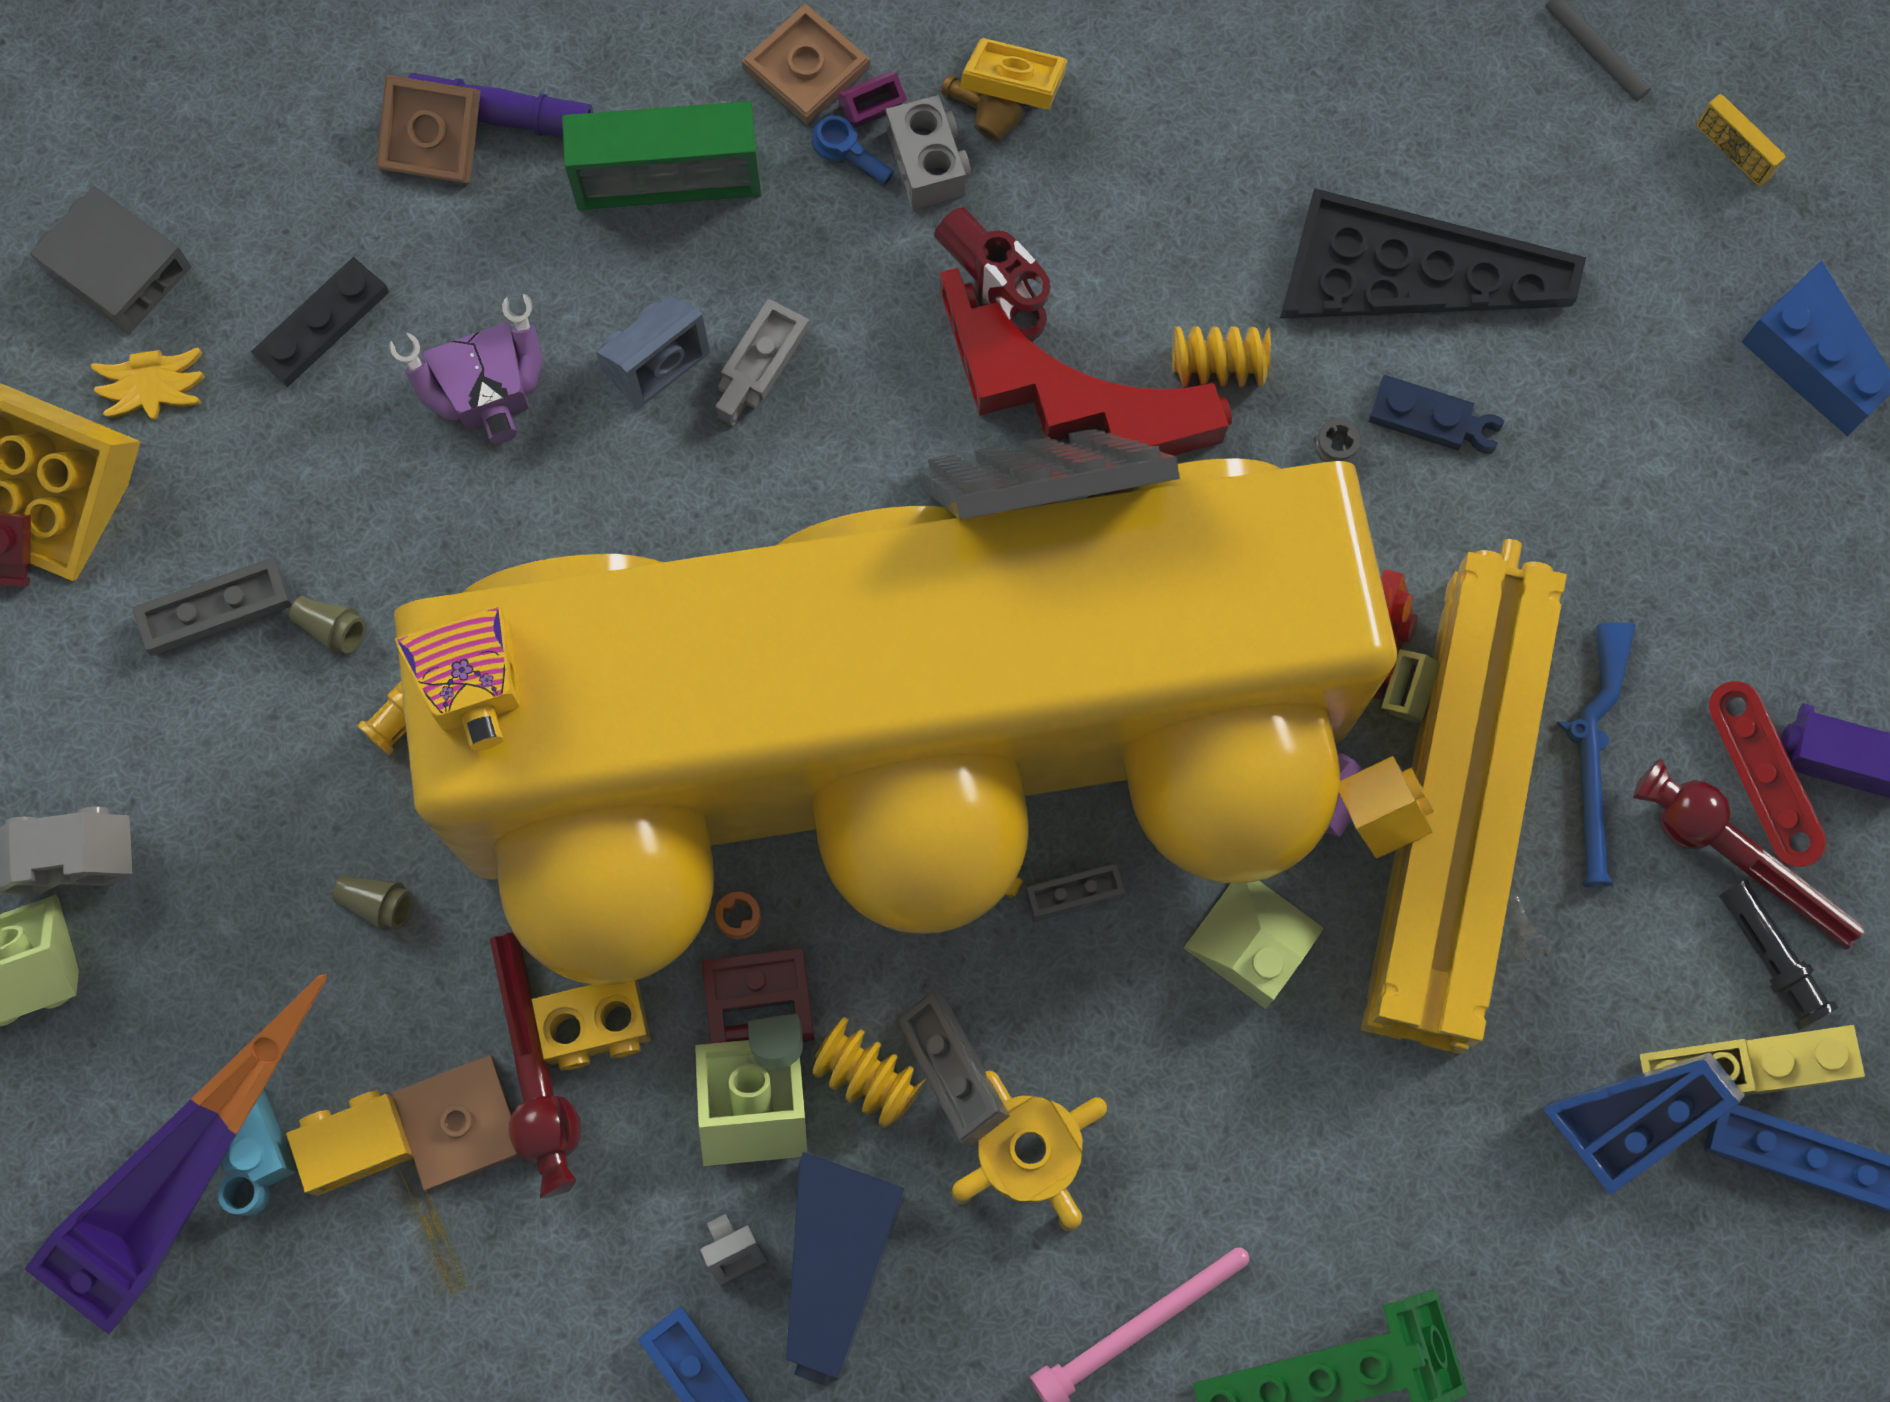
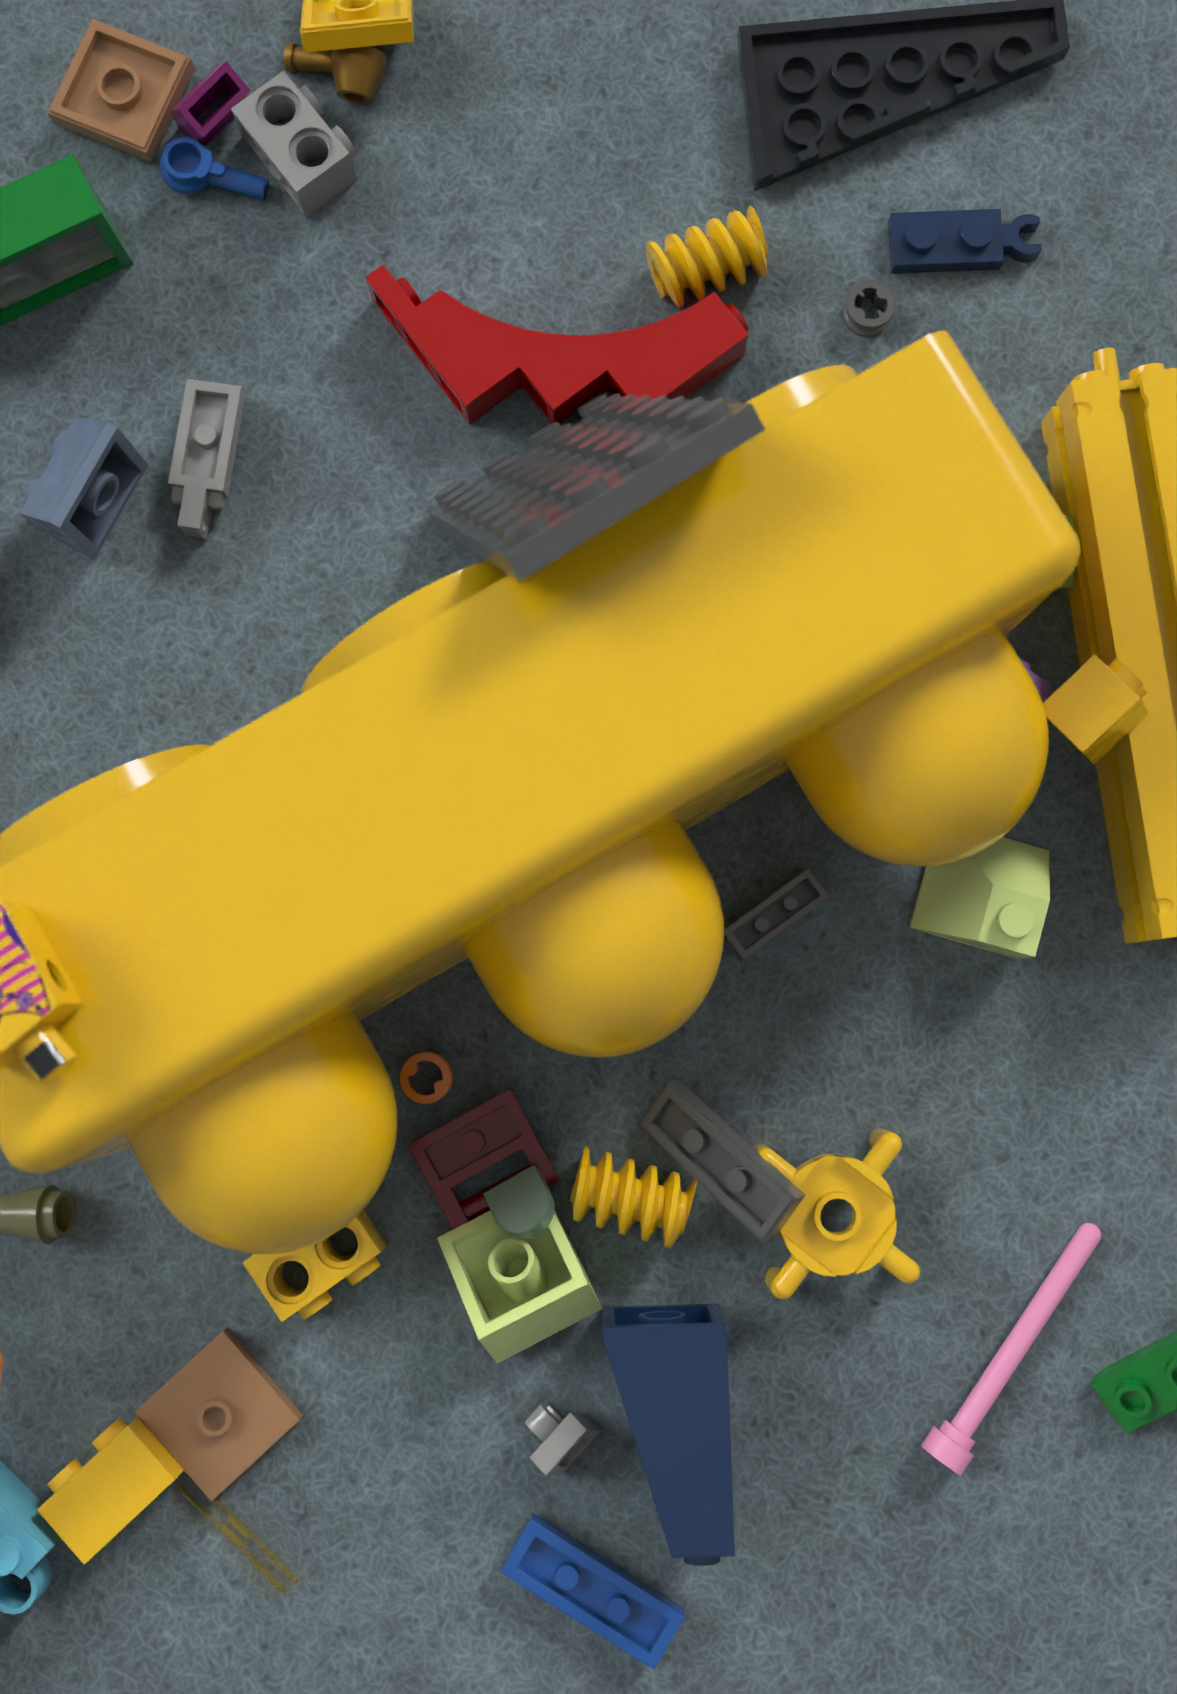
camera: 15 degrees left, 10 degrees up
(544, 1125) = (311, 1386): dark red piece -> none
(997, 266) = (426, 246): dark red connector -> none

